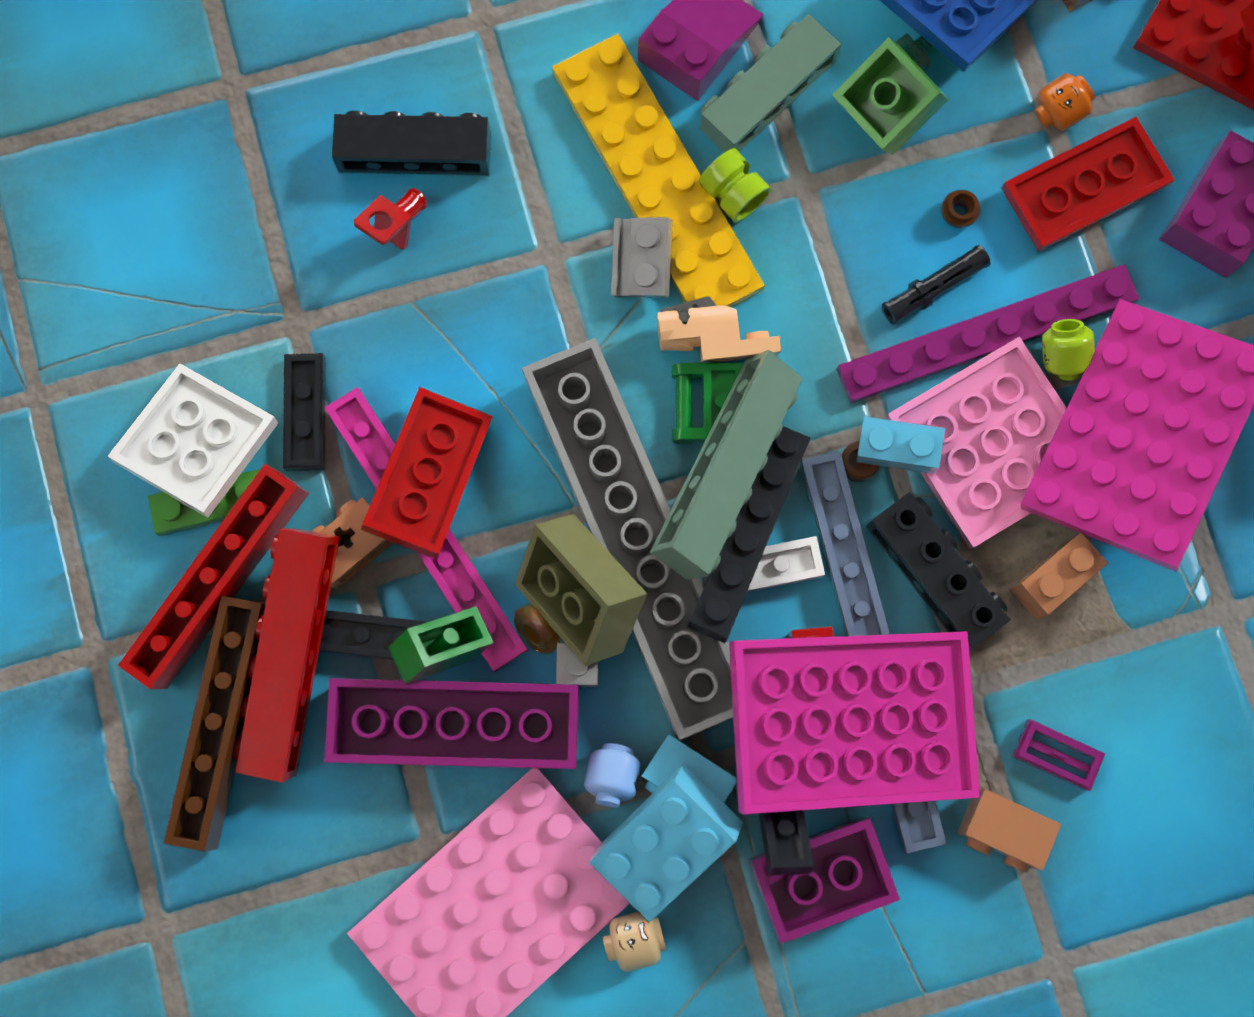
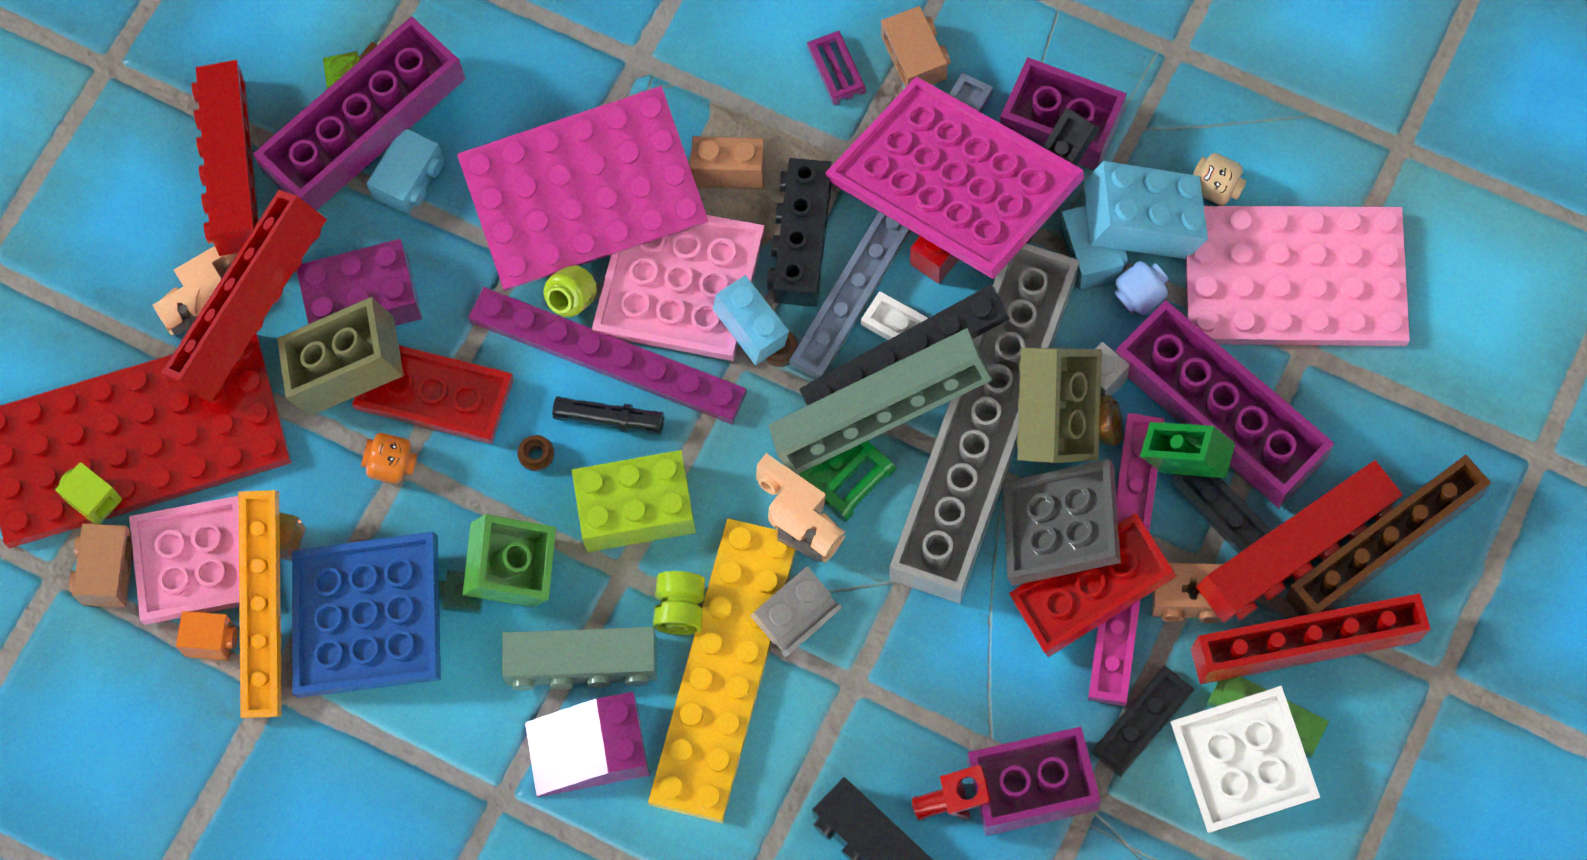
camera: 130 degrees left, 10 degrees down
(341, 283) = (1036, 781): none -> magenta brick
(493, 498) = (1061, 522): none -> dark grey plate
(846, 231) = (633, 501): none -> lime brick
(1183, 130) = (340, 357): none -> olive brick

